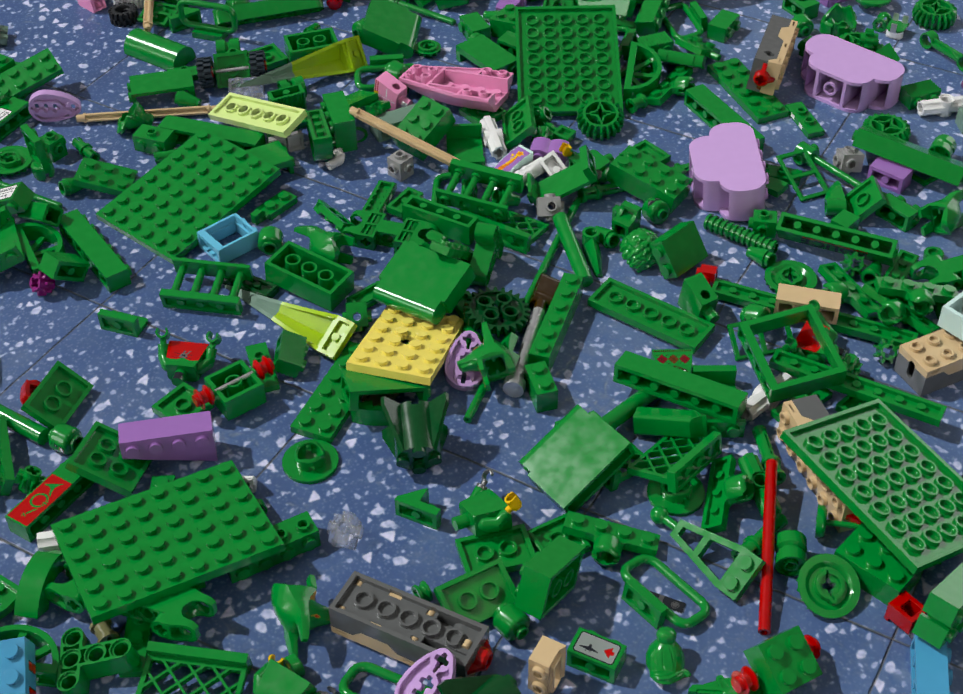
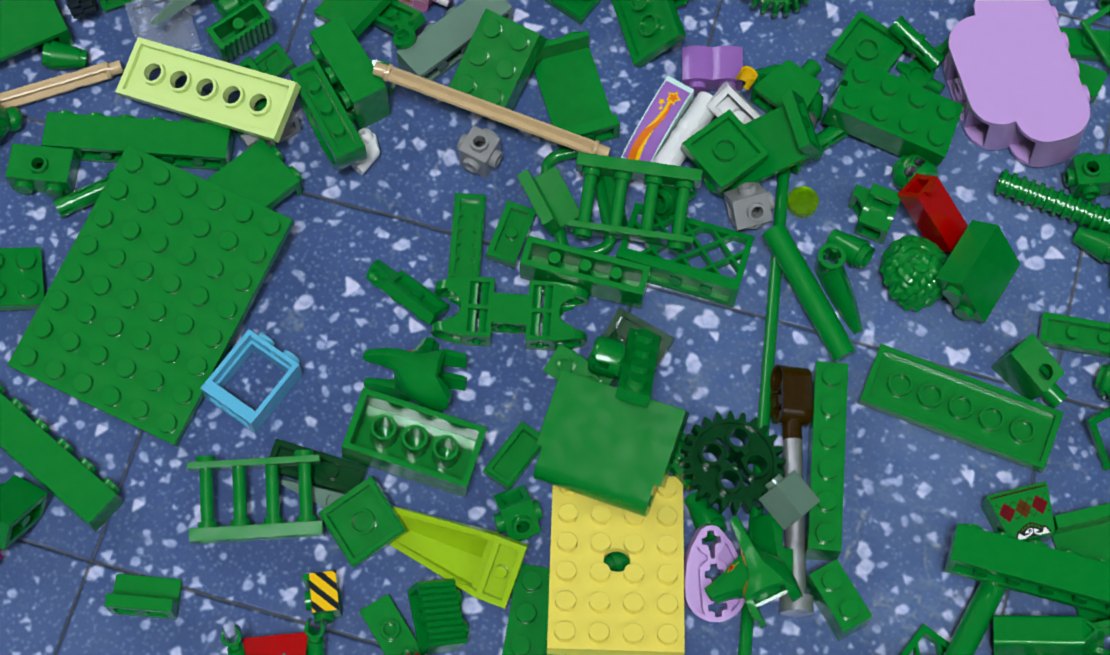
camera: 15 degrees left, 25 degrees up
(229, 333) = (323, 596): none -> brick
(264, 307) = (363, 521): none -> green tile
(270, 240) = (323, 372): green head -> none
(273, 207) = (298, 284): green hinge -> none
(429, 187) = (550, 198): none -> green panel
(487, 249) = (680, 346): green beam -> none
(493, 137) = (610, 50): white piece -> none
(523, 324) = (788, 499): none -> sand green brick
(542, 131) = (695, 33): green gear -> none
(542, 177) = (725, 150): none -> green plate
(561, 132) = (722, 20): green plate -> none
(584, 215) = (802, 202): none -> clear neon green tile
(657, 215) = (933, 211): none -> red brick
(673, 153) = (916, 43): none -> green pin
(709, 271) = (1026, 306): red plate -> none

